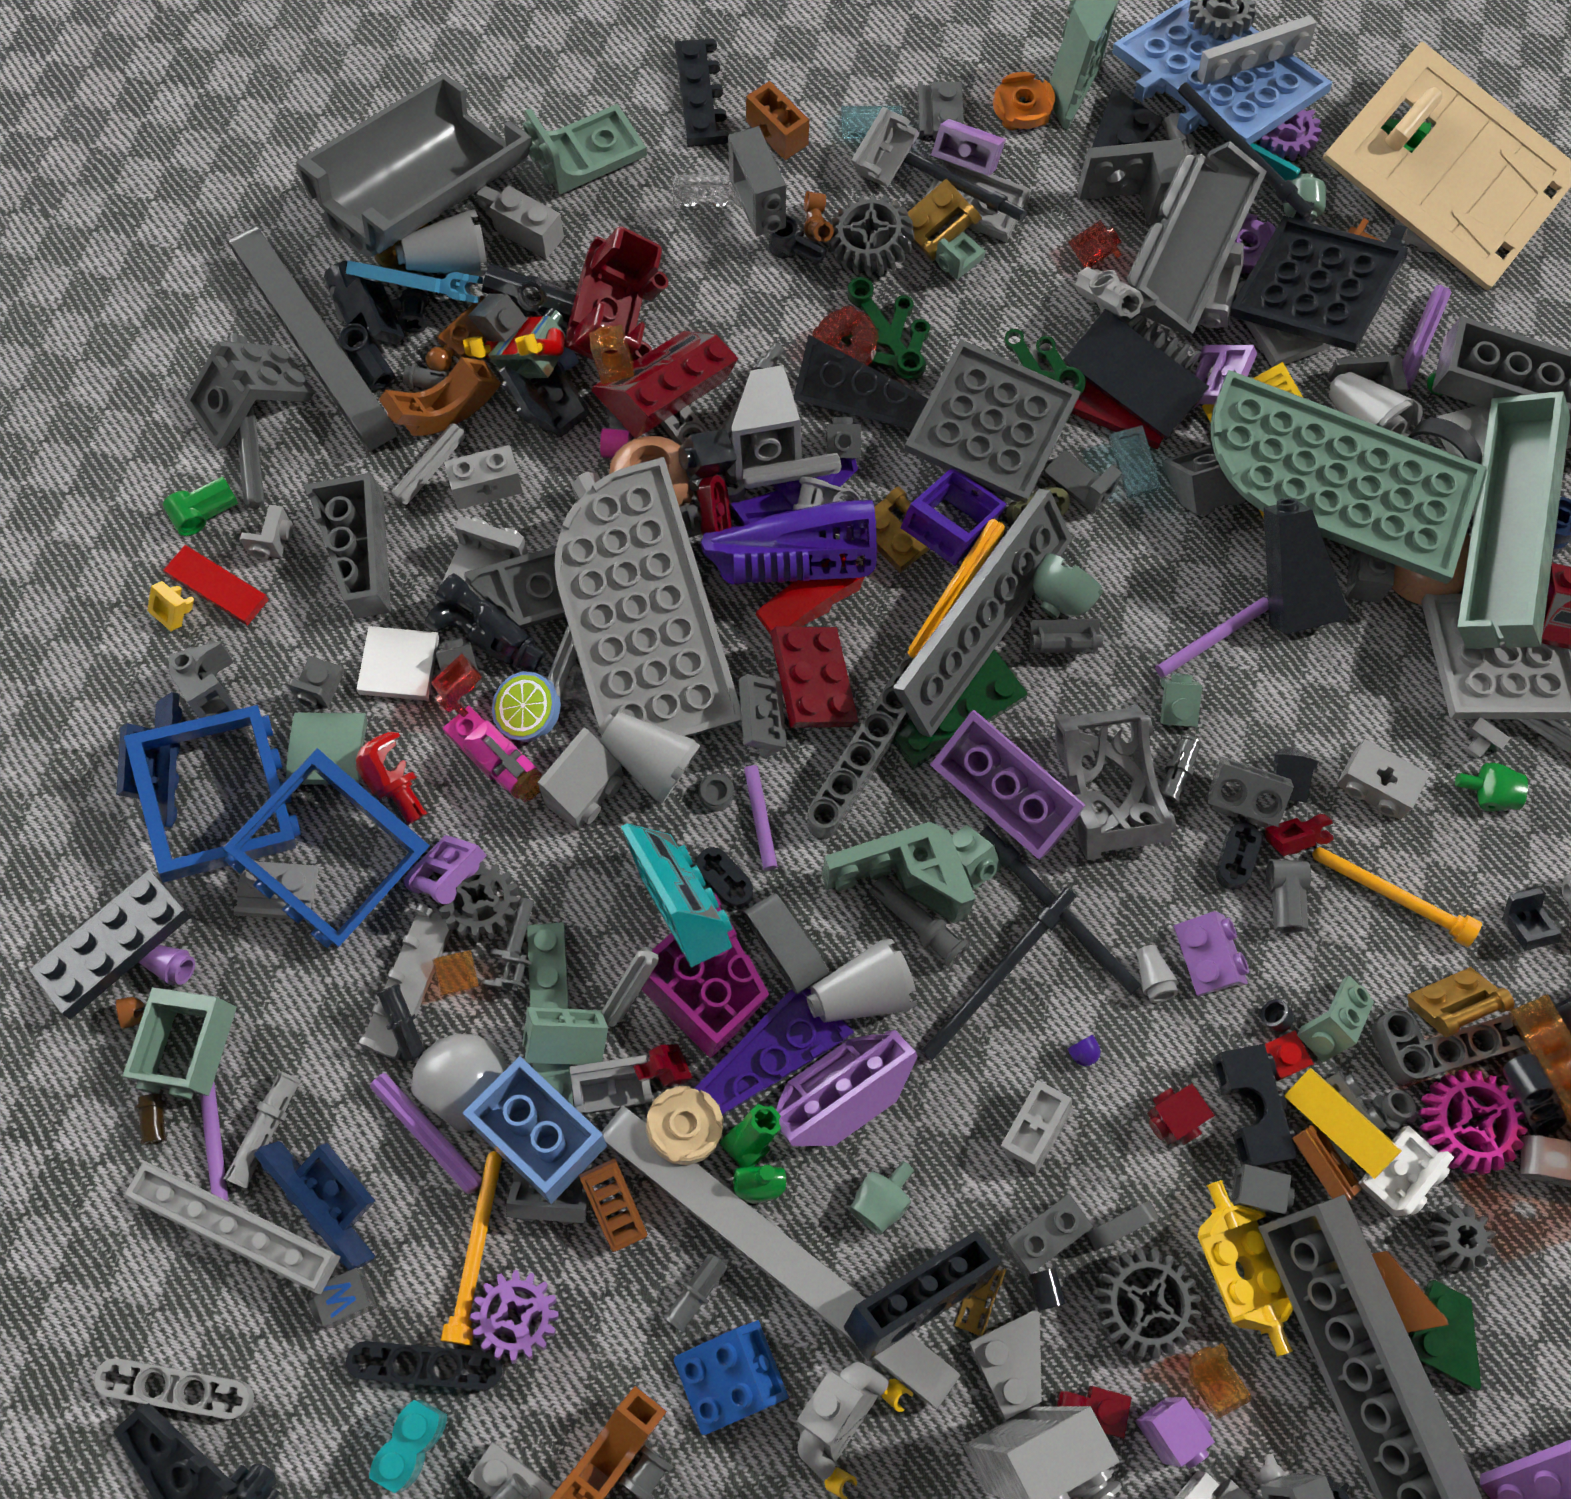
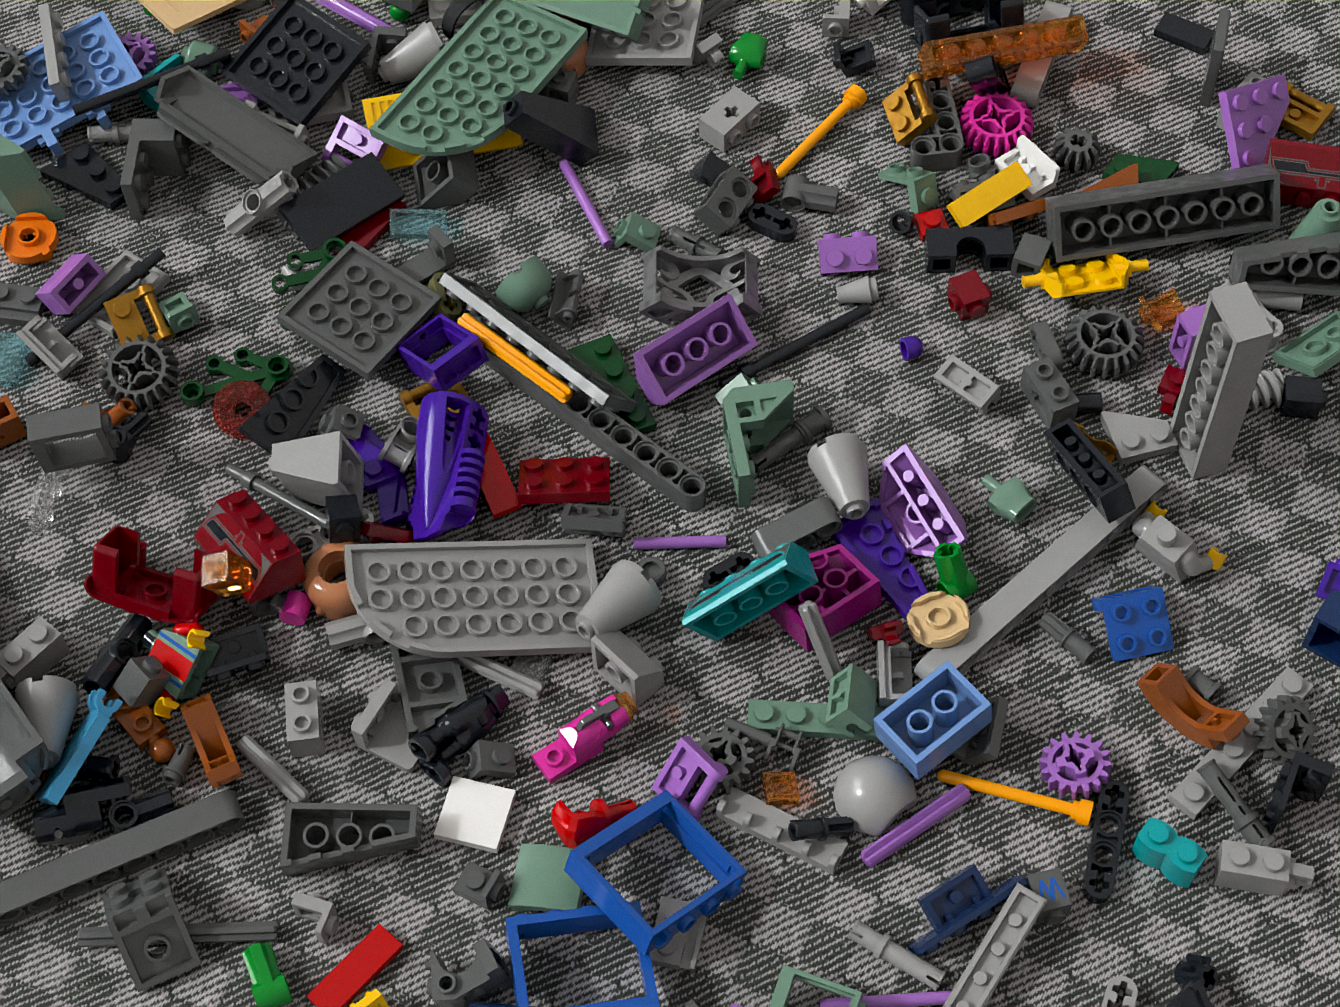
camera: 75 degrees left, 10 degrees down
(454, 682) = (516, 752): clear red bracket -> none
(526, 706) = (544, 705): tile -> none
(625, 1227) = (999, 679): dark orange slope -> none
(759, 1183) = (989, 574): green piece -> none
(791, 470) = (368, 464): light grey axle -> none
(1045, 921) = (806, 352): black bar -> none
(1095, 244) = (200, 212): clear red bracket -> none

